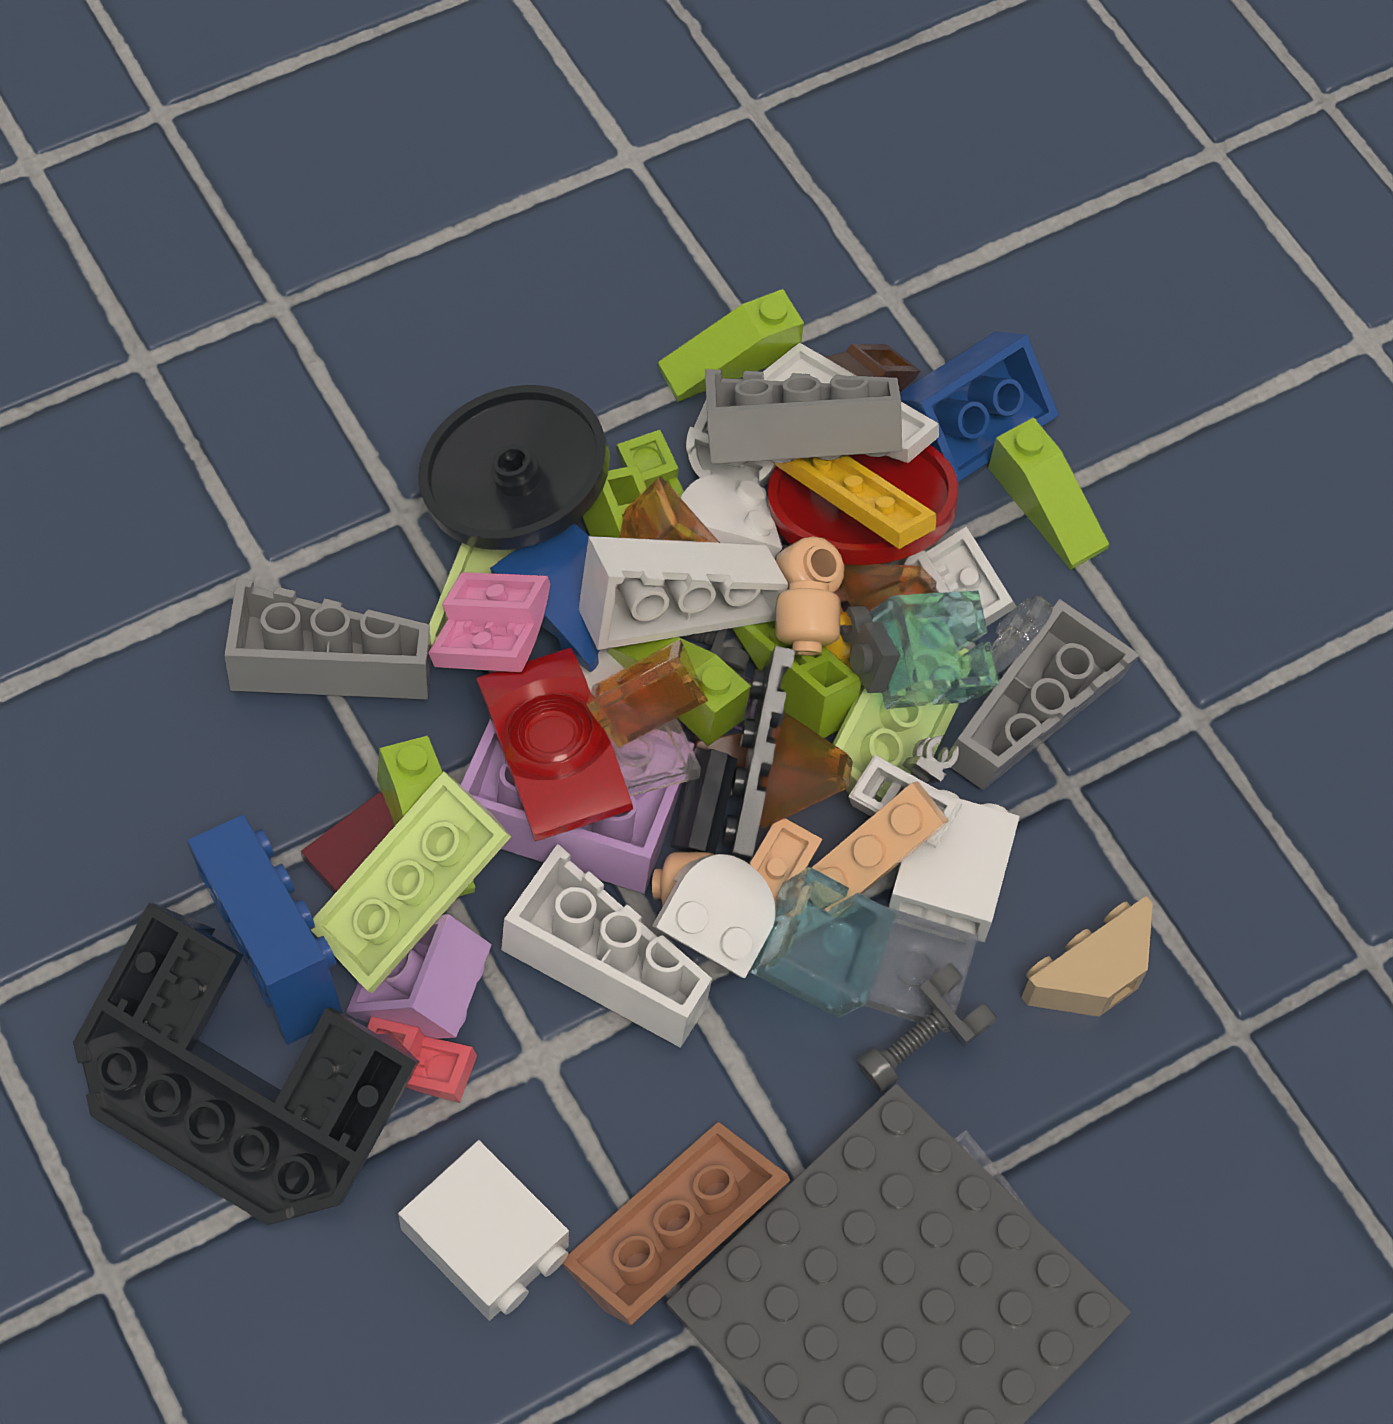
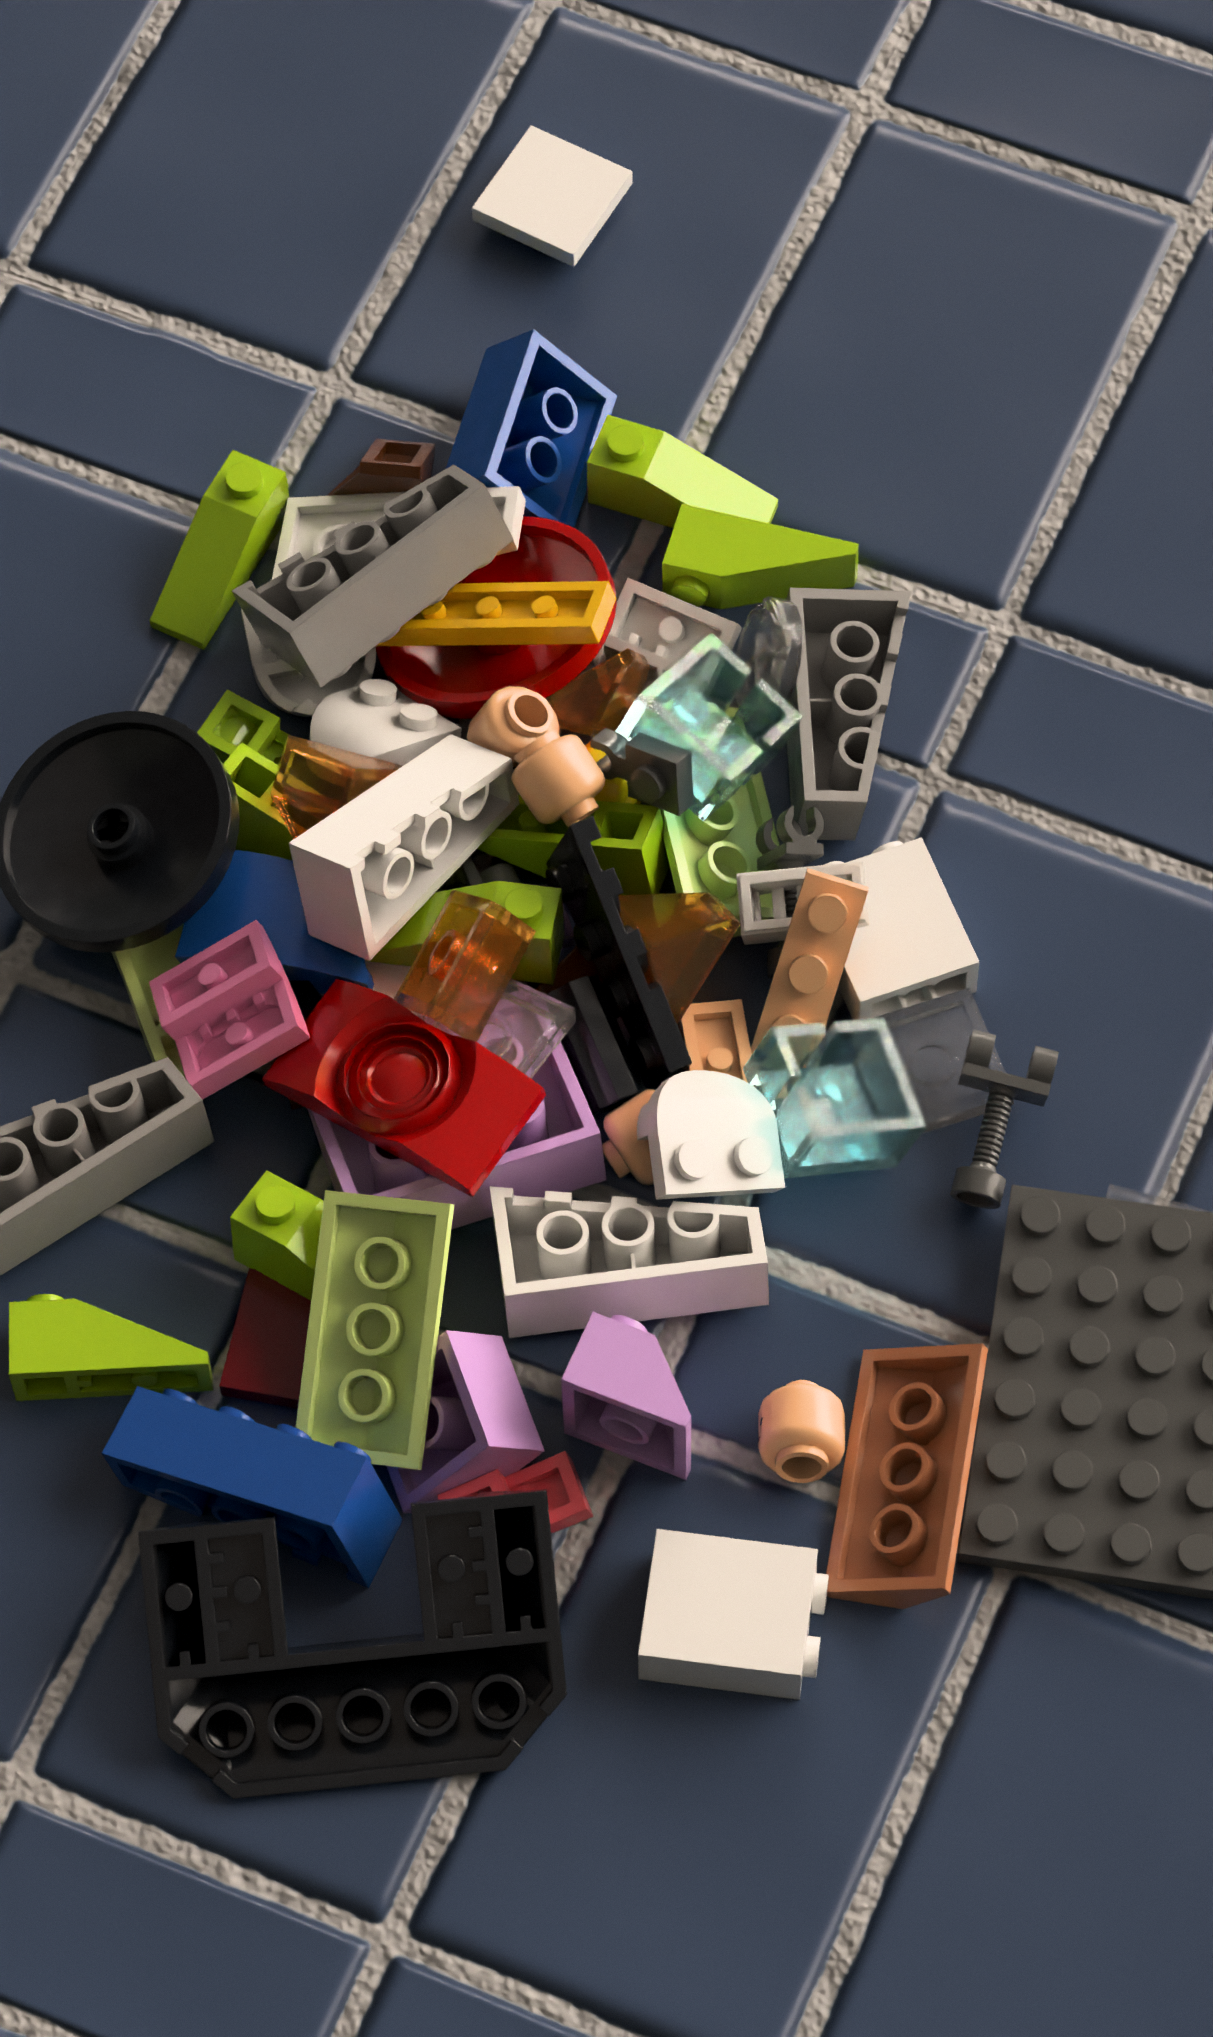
camera: 30 degrees left, 0 degrees up
(232, 766) = (83, 1351): none -> lime slope
(530, 1033) = (626, 1397): none -> lavender slope
(629, 1145) = (801, 1431): none -> light nougat head
(1050, 564) = (740, 560): none -> lime slope
(1098, 965) = (1109, 935): tan slope -> none
(1116, 268) = (552, 195): none -> white tile

